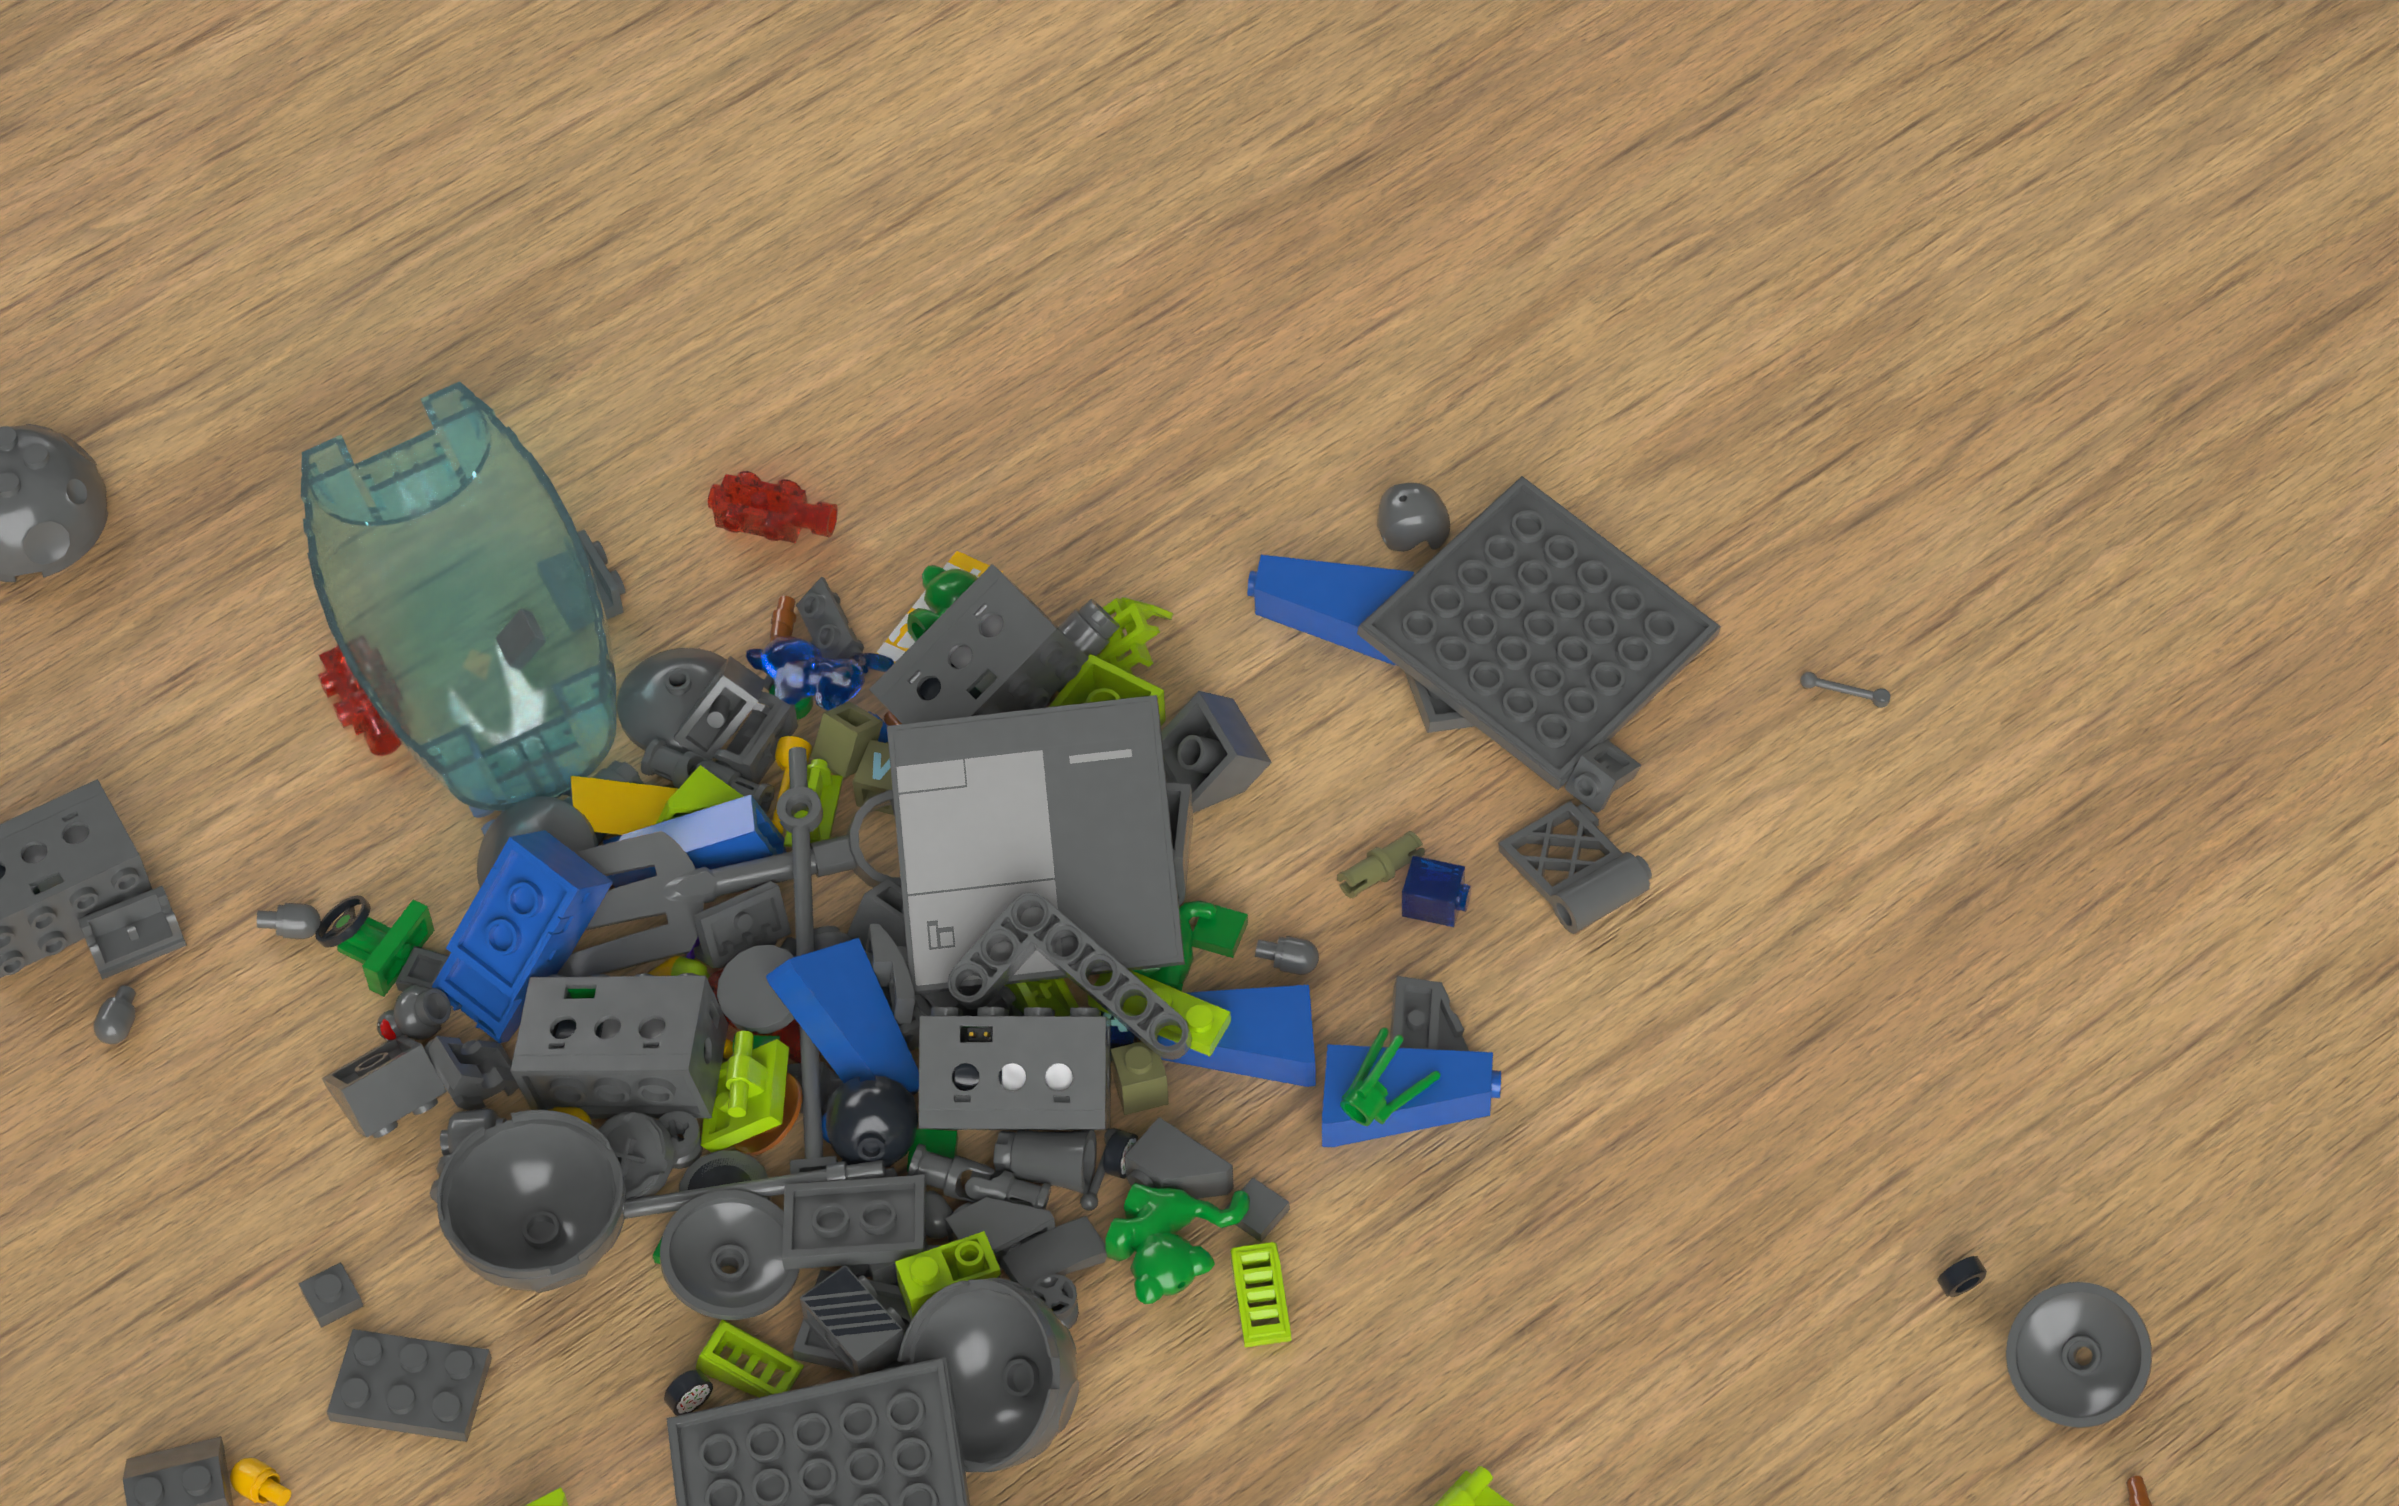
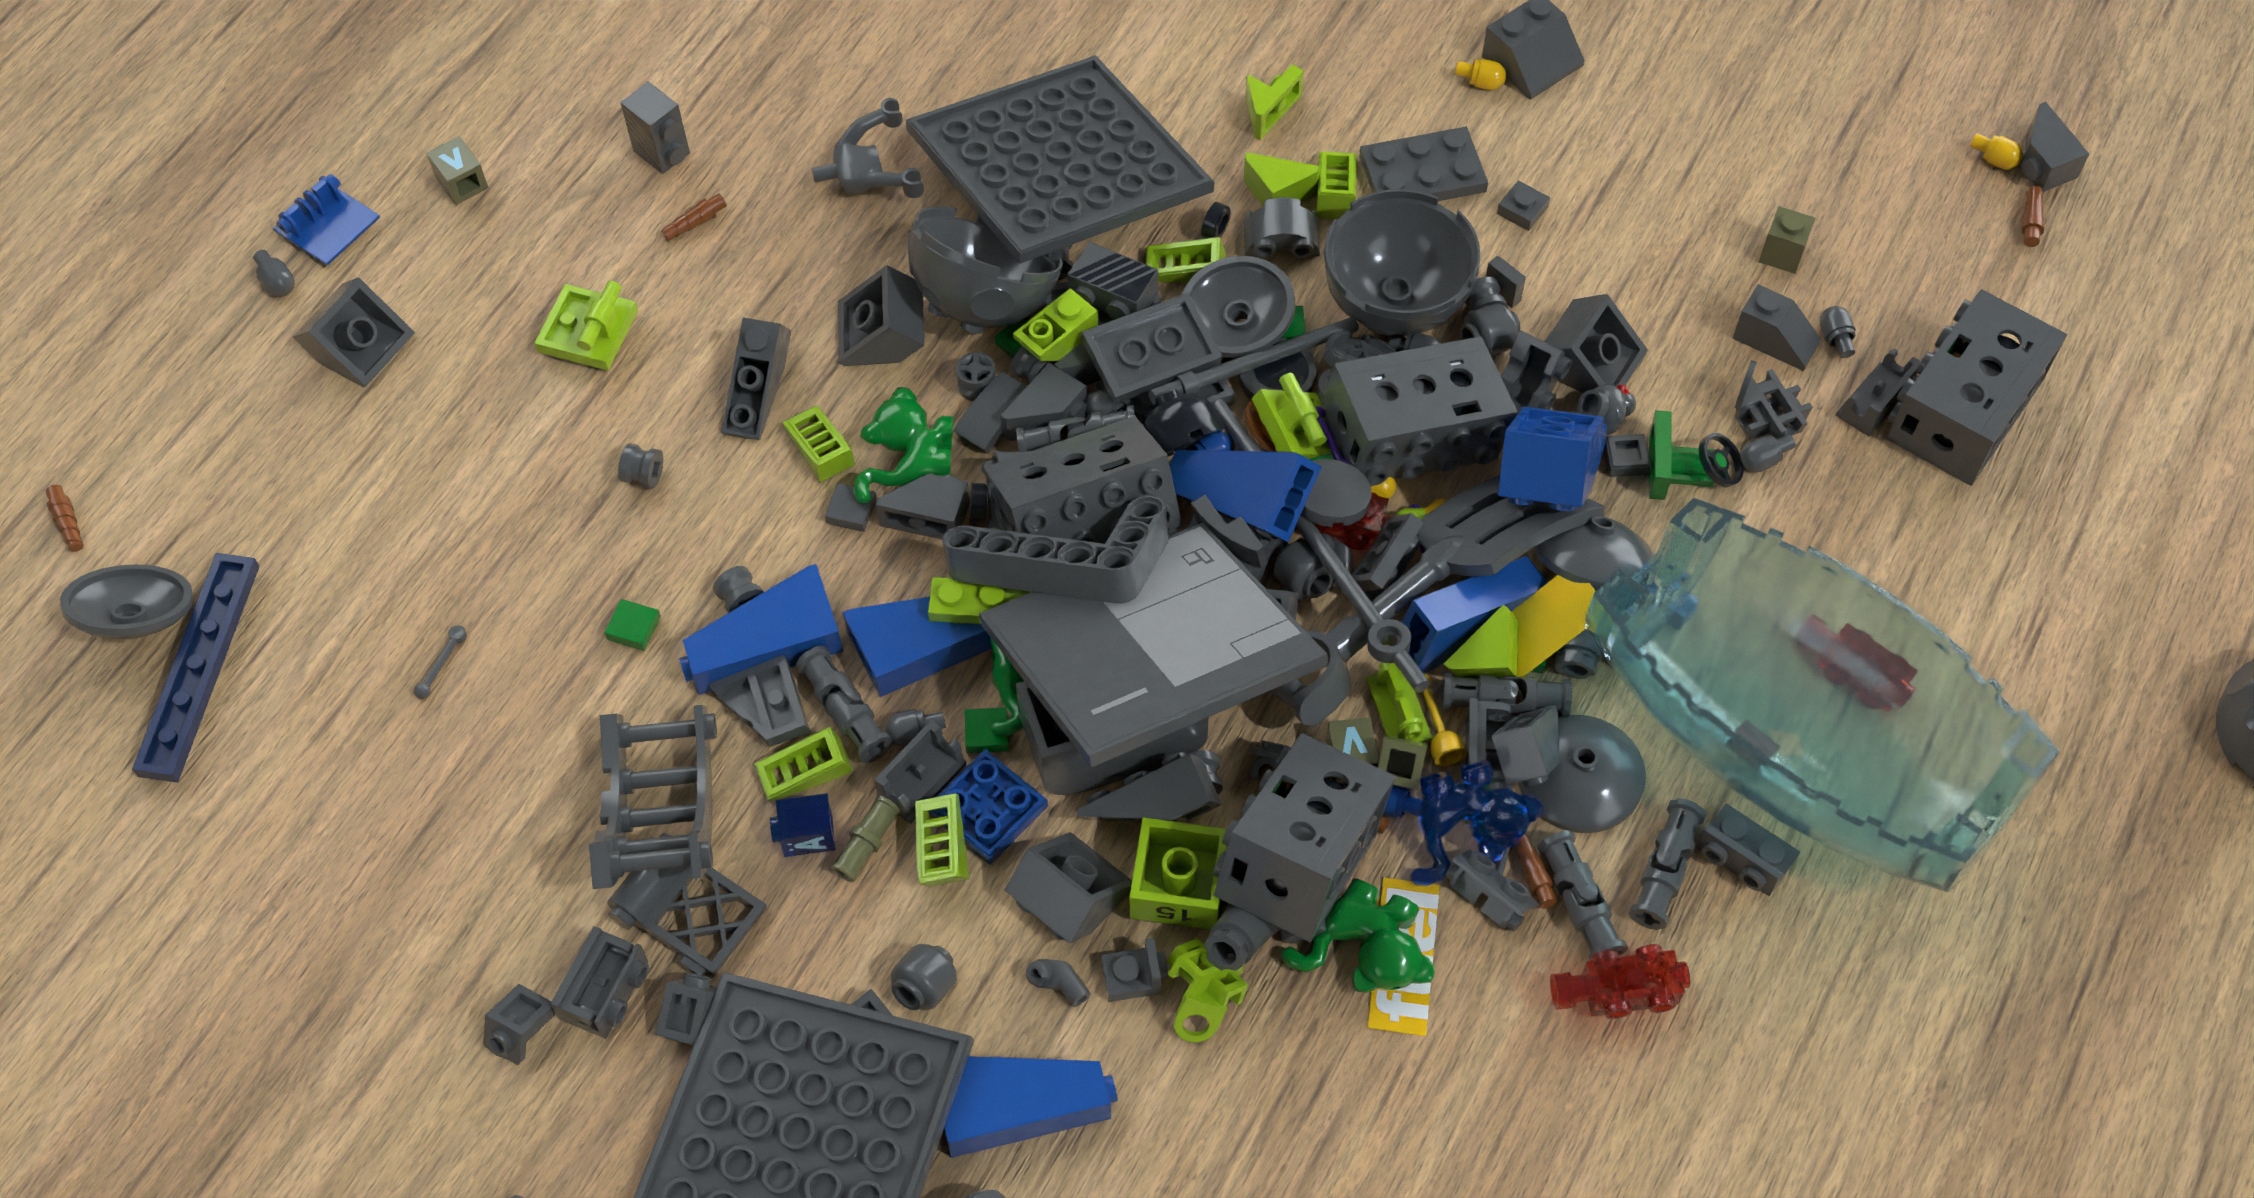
camera: 155 degrees right, 5 degrees up
(91, 1125) = (1786, 239): none -> olive brick
(183, 1041) = (1777, 328): none -> dark grey slope
(258, 964) = (1765, 412): none -> dark grey piece
(419, 1195) = (1508, 278): none -> dark grey tile
(513, 1380) = (1335, 187): none -> lime slope
(586, 1413) = (1278, 177): none -> lime slope
(623, 1356) = (1281, 226): none -> dark grey cylinder
(659, 592) = (1667, 864): none -> dark grey piece
(719, 1099) = (1330, 440): none -> dark purple hinge
(755, 590) = (1580, 893): none -> dark grey piece
(1131, 1408) = (881, 320): none -> dark grey slope
(1183, 672) = (1134, 972): none -> dark grey bracket
(1251, 861) = (993, 805): none -> blue tile
(1254, 695) = (1058, 976): none -> dark grey arm
(1297, 1395) = (755, 377): none -> dark grey slope
(1305, 907) = (920, 770): none -> dark grey hinge
(1312, 824) = (926, 857): none -> lime slope
(1347, 987) = (844, 704): none -> dark grey piece
(1367, 1096) = (778, 582): green plant -> none
(1377, 723) = (923, 977): none -> dark grey head
(1391, 941) = (808, 778): none -> lime slope
(1412, 1146) = (736, 587): none -> dark grey wheel
(1468, 1329) = (640, 465): none -> dark grey wheel
(1536, 1163) = (632, 624): none -> green tile
(1612, 951) = (611, 850): none -> dark grey fence
(1677, 820) = (600, 983): none -> dark grey hinge
(1727, 1224) = (457, 635): none -> dark grey hinge
(1765, 814) = (515, 1022): none -> dark grey bracket
(1962, 1276) = (242, 647): black tile -> none
(2014, 1278) = (196, 668): none -> dark blue plate

